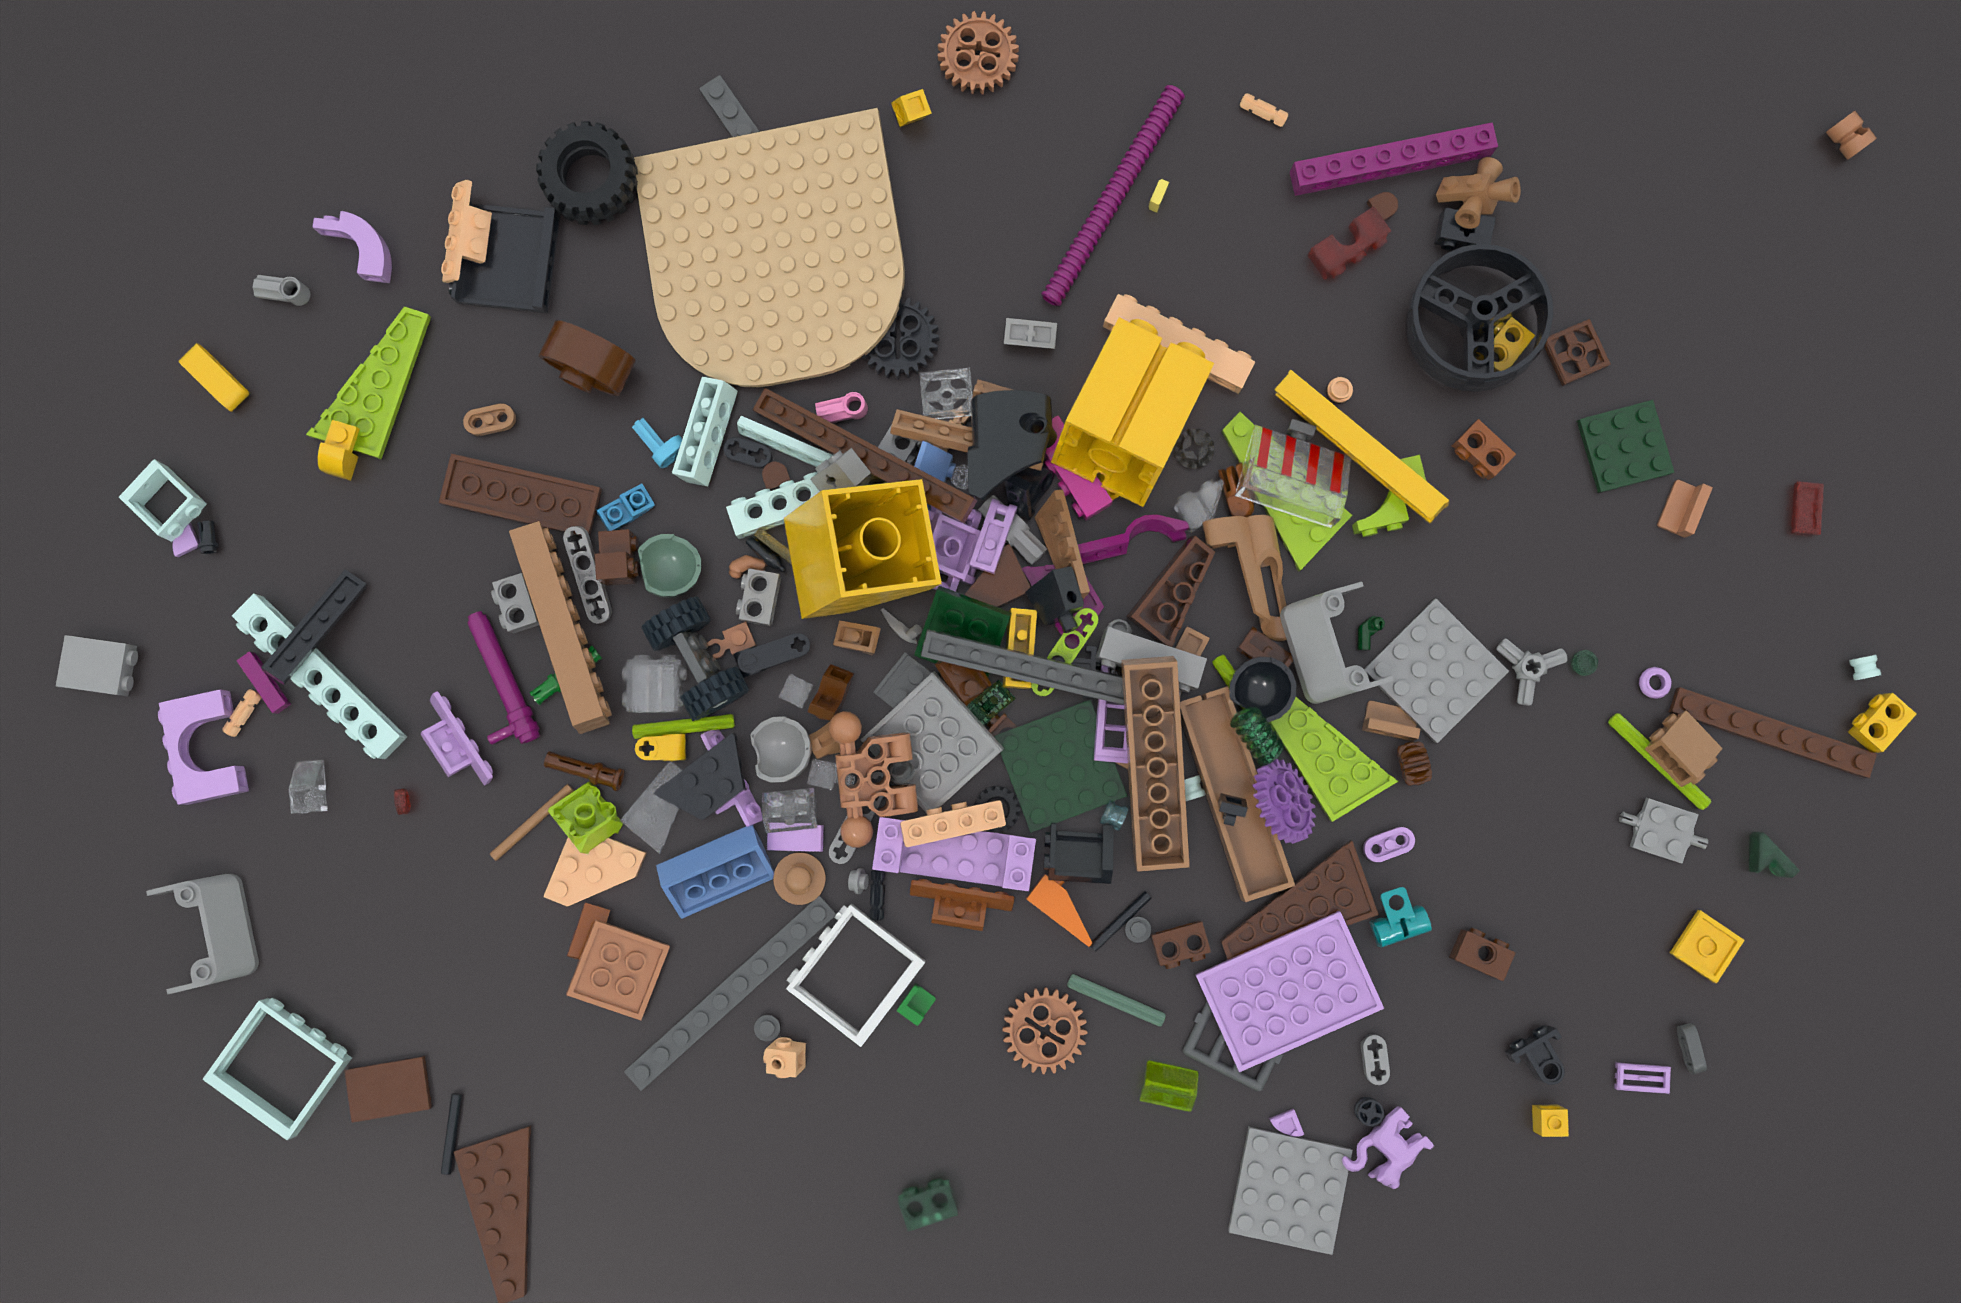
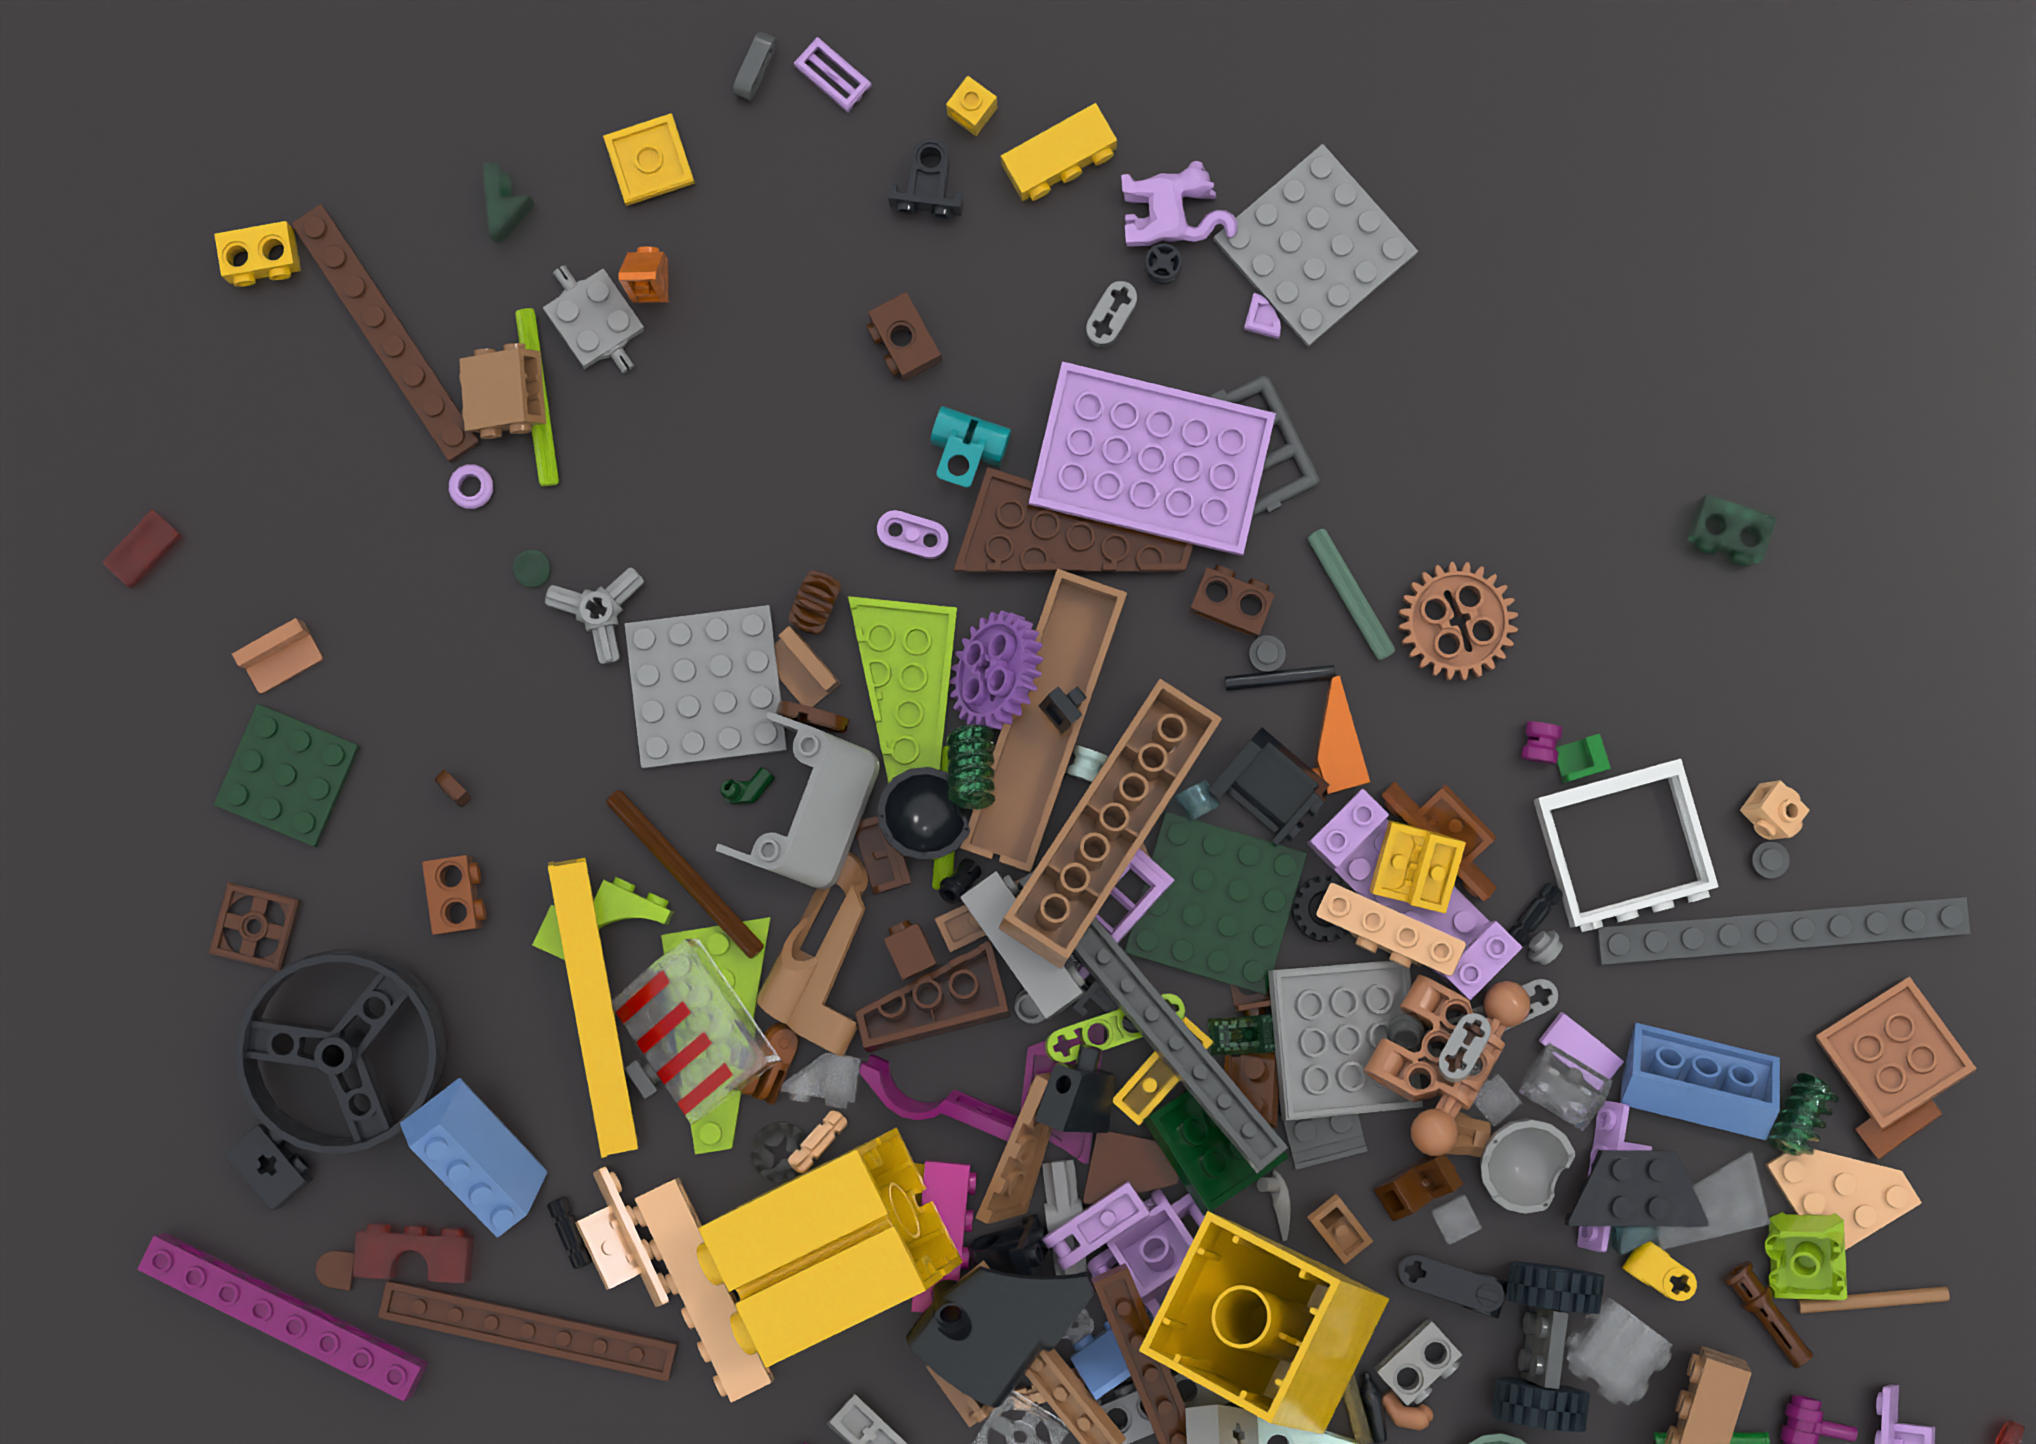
camera: 135 degrees left, 0 degrees up
(645, 894) = (1802, 1116): none -> clear green piece
(683, 726) = (1617, 1278): lime axle -> none
(693, 752) = (1629, 1237): none -> clear light blue slope
(735, 640) = (1481, 1333): nougat plate -> none
(799, 878) = (1610, 1000): medium nougat plate -> none
(870, 786) = (1456, 1043): none -> light grey beam
(945, 996) = (1541, 742): none -> magenta wheel
(964, 871) = (1417, 866): none -> yellow slope
(1169, 1086) = (1363, 456): clear neon green panel -> none
(1179, 468) = (817, 1141): none -> light nougat axle
(1210, 609) = (910, 949): none -> reddish brown brick
(1212, 668) = (960, 880): none -> black pin
(1246, 331) = (616, 1244): none -> light nougat bracket
(1256, 251) = (527, 1330): none -> reddish brown plate
(1274, 319) = (569, 1232): none -> black axle
(1339, 389) = (559, 1091): light nougat plate -> none
(1360, 316) = (475, 1156): none -> medium blue slope
(1365, 697) = (813, 716): none -> reddish brown tile
(1366, 558) = (685, 874): none -> reddish brown axle
(1478, 192) = (219, 1199): medium nougat brick -> none
(1478, 1131) = (1059, 153): none -> yellow brick
(1507, 350) = (332, 987): yellow brick -> none
(1529, 507) = (452, 788): none -> reddish brown tile
(1657, 876) = (645, 275): none -> orange slope
(1865, 667) = (225, 326): light aqua wheel -> none

